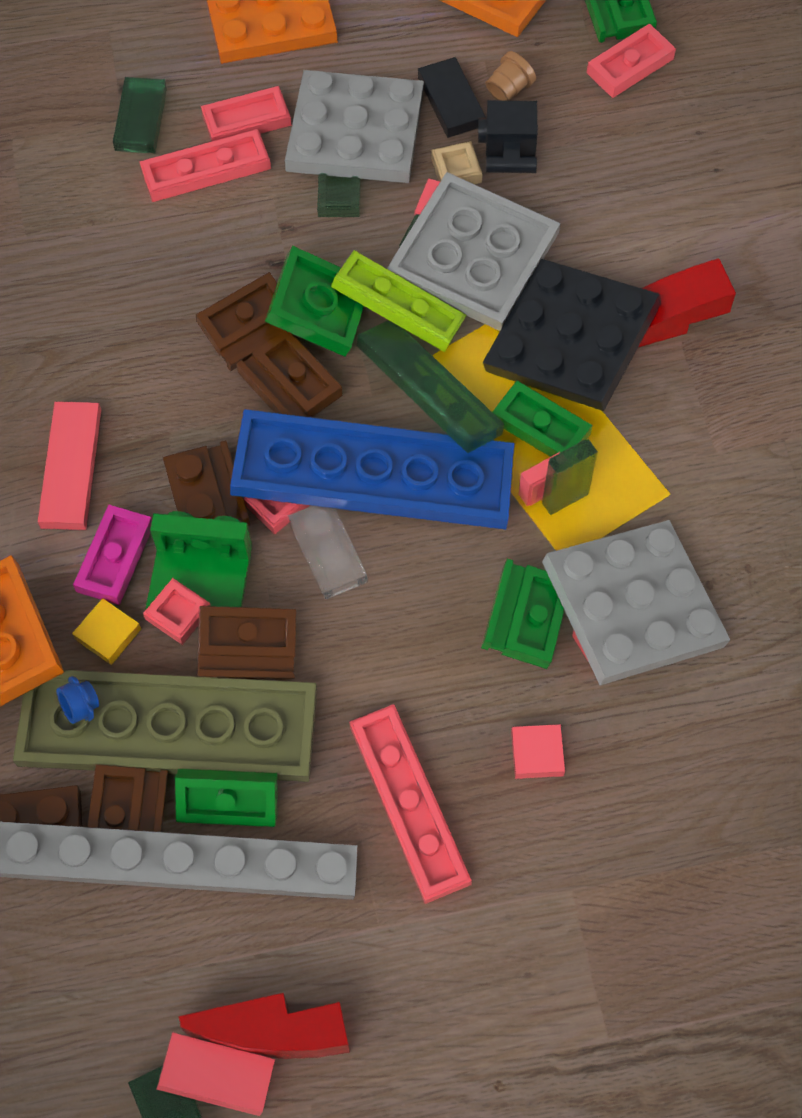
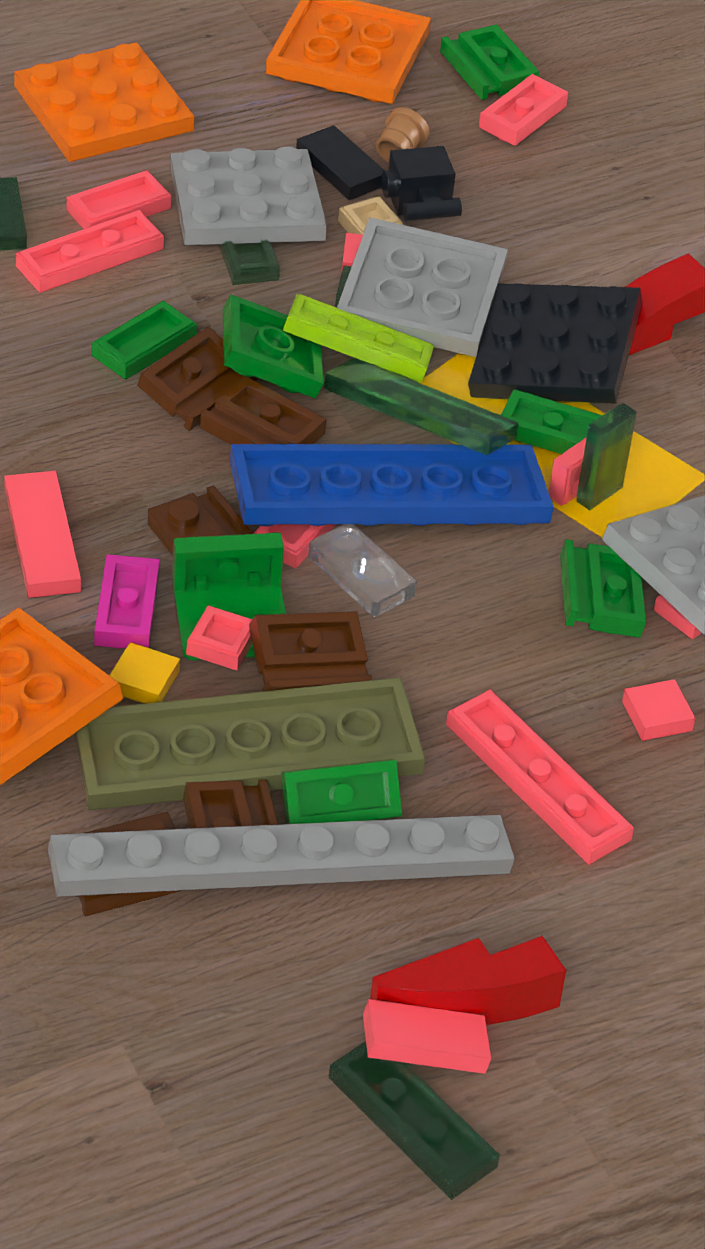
camera: 20 degrees left, 20 degrees down
(77, 700) = (147, 722): blue plate -> none
(221, 268) = (143, 340): none -> green tile

